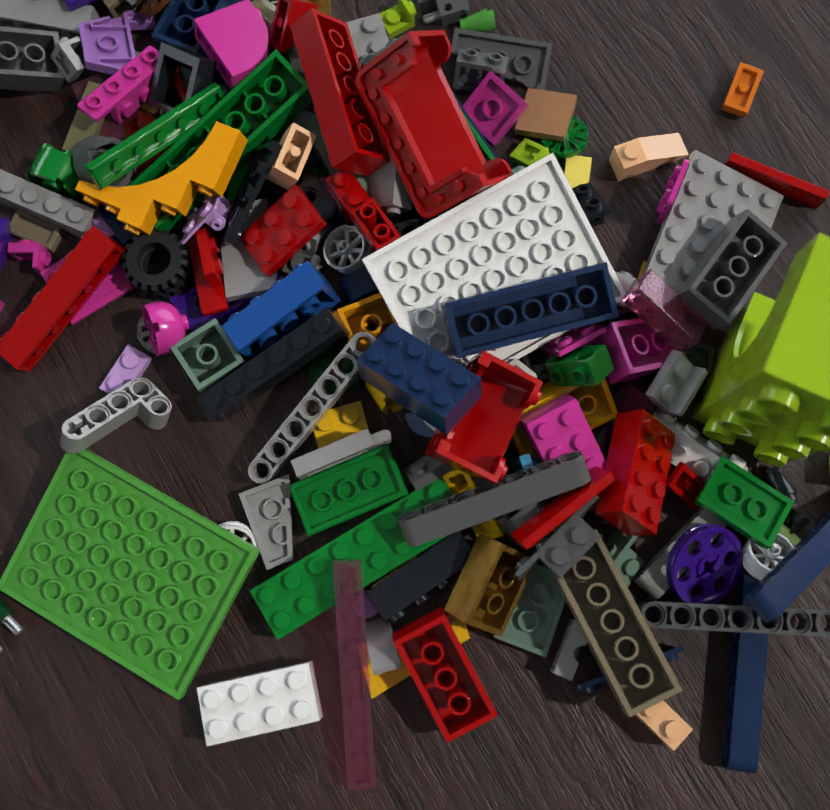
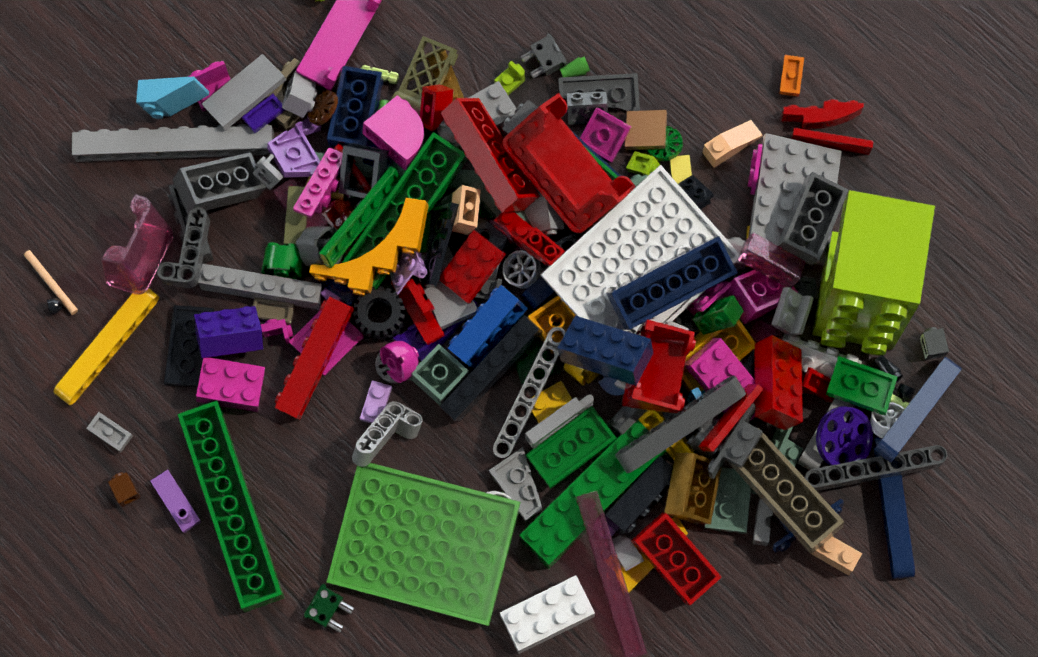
camera: 15 degrees left, 5 degrees down
(779, 148) = (829, 115): none -> red slope

